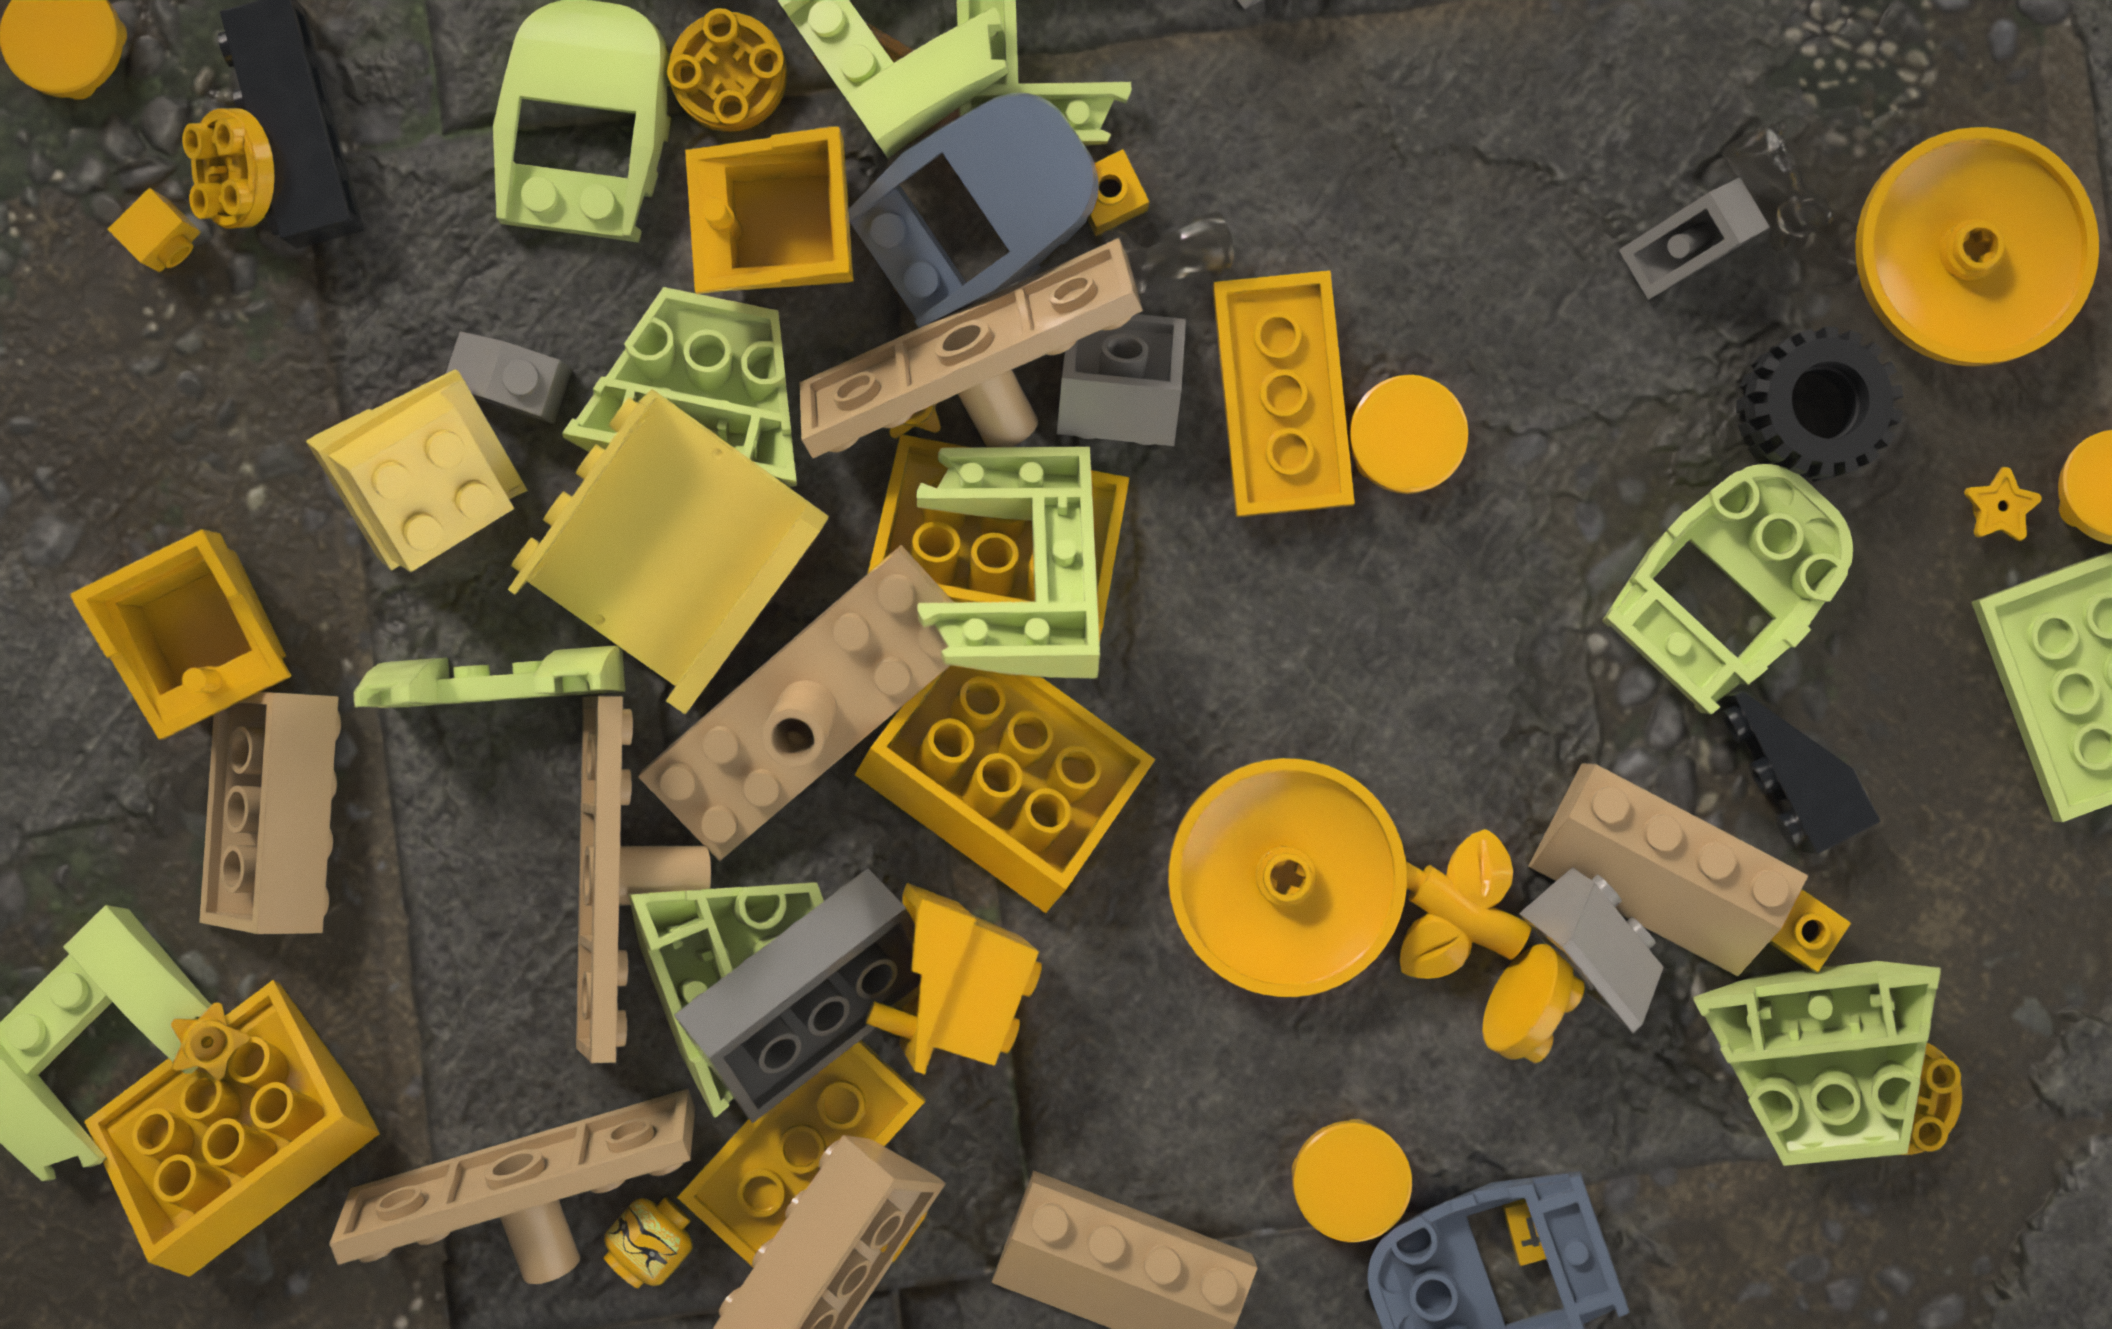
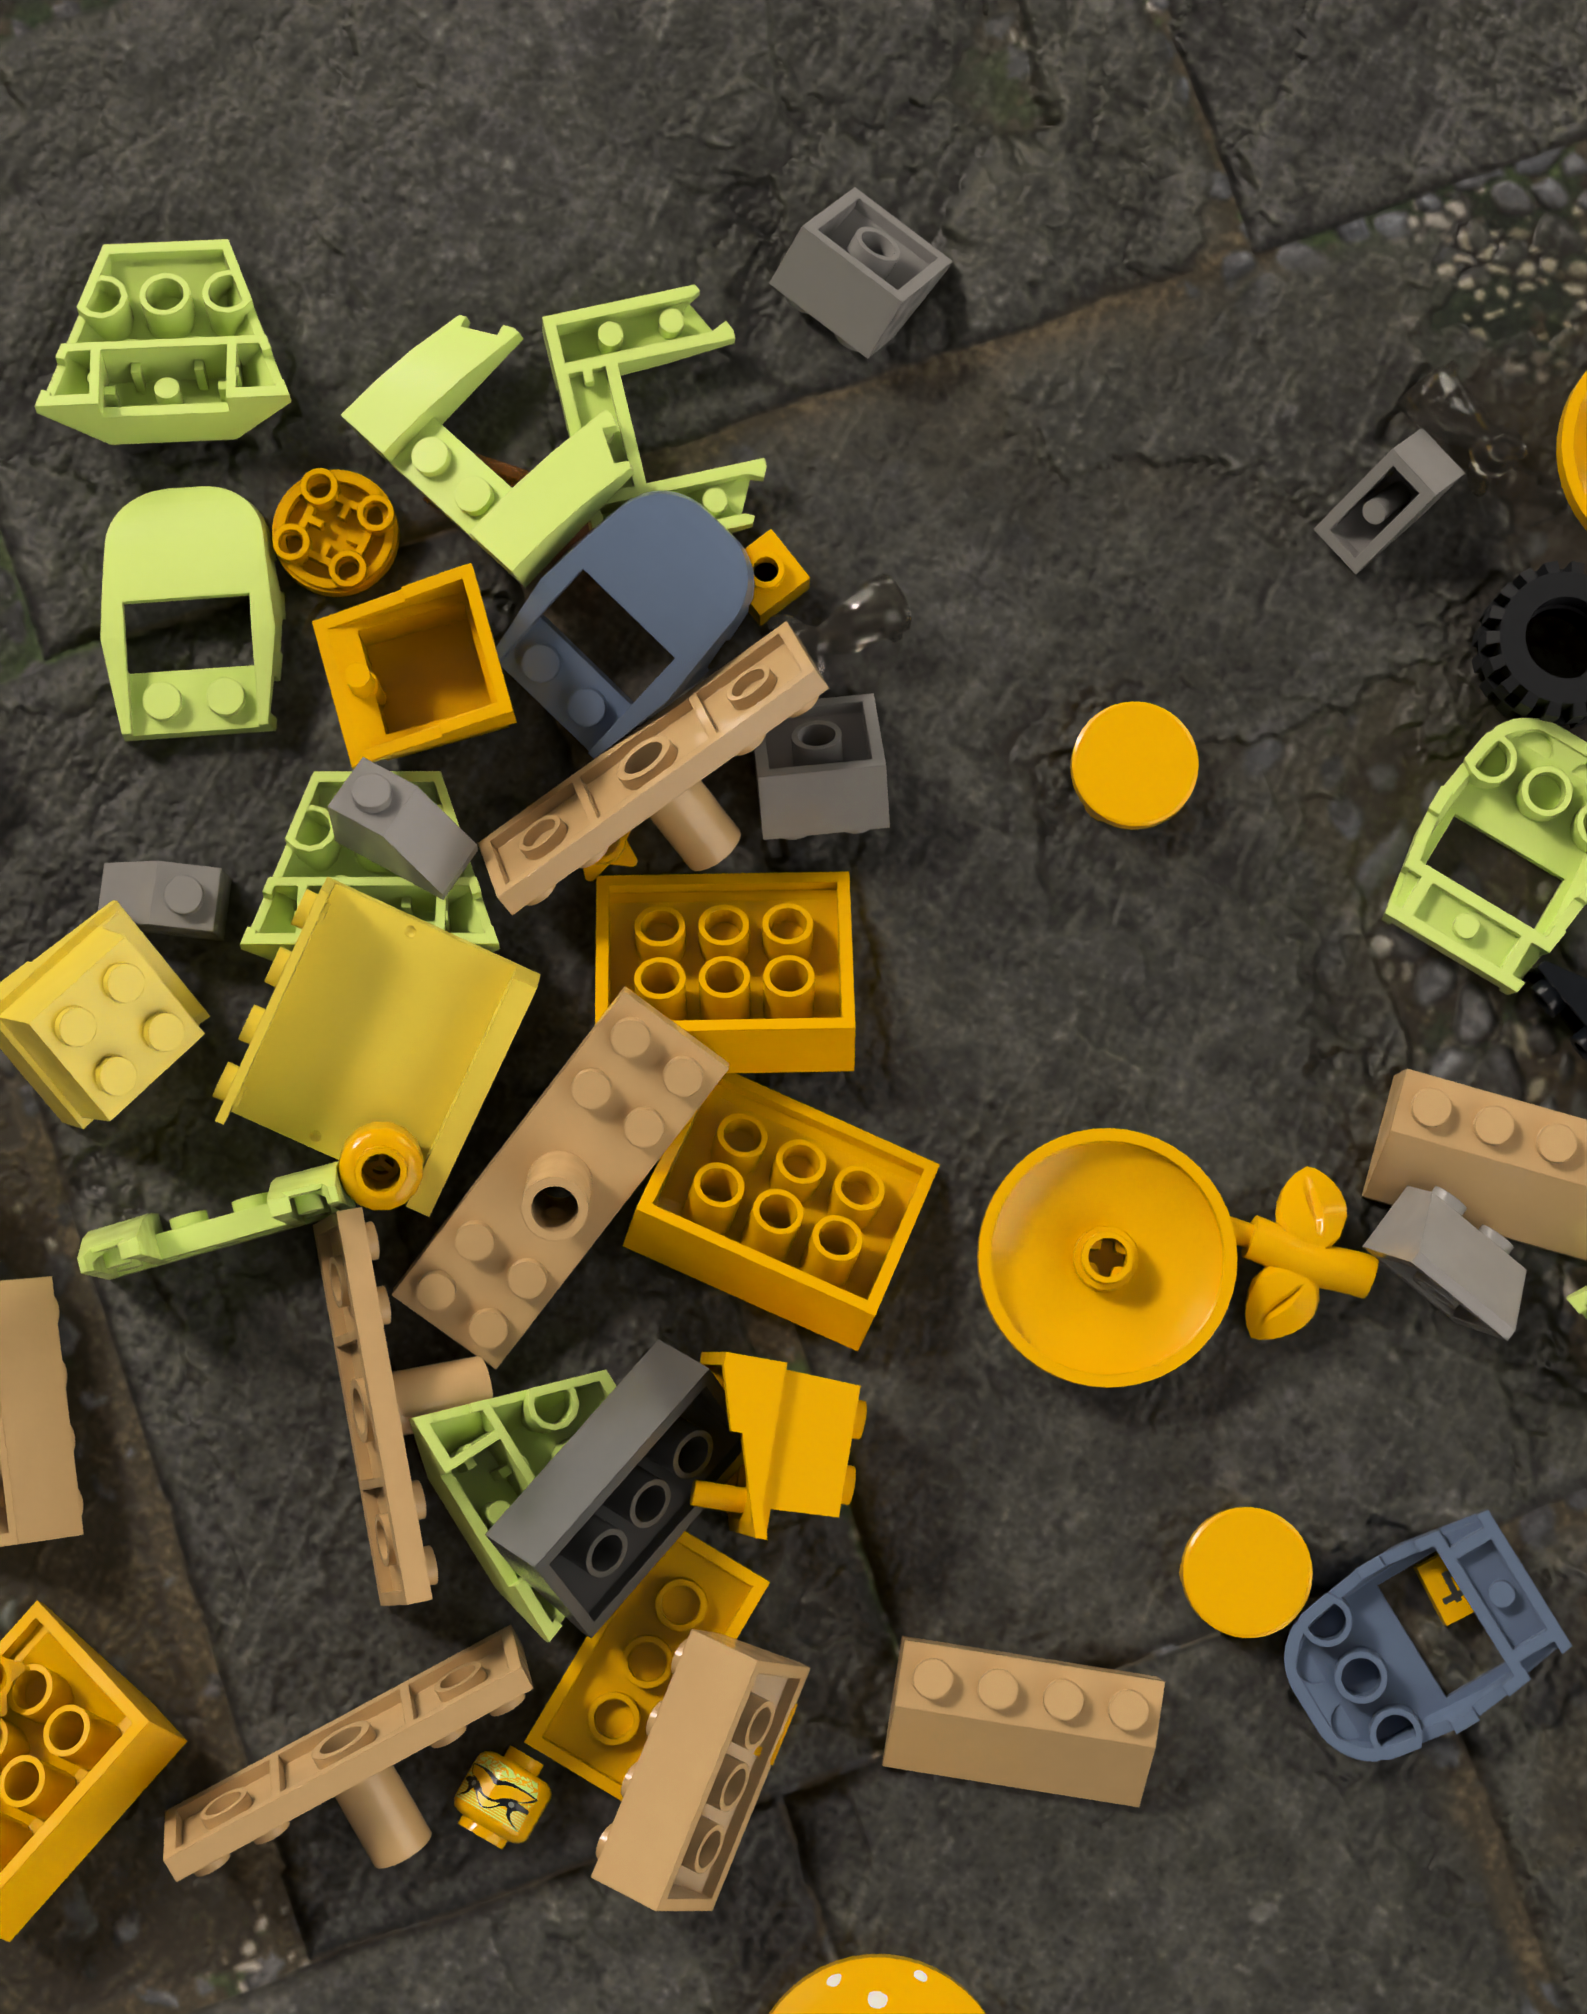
camera: 15 degrees left, 5 degrees down
(647, 679) = (381, 1188): none -> yellow head
(727, 357) = (399, 829): none -> light grey slope
(1061, 627) = (812, 1036): yellowish green wedge -> none
(1283, 393) = (993, 750): yellow plate -> none
(1530, 1004) = (1394, 1338): yellow tile -> none

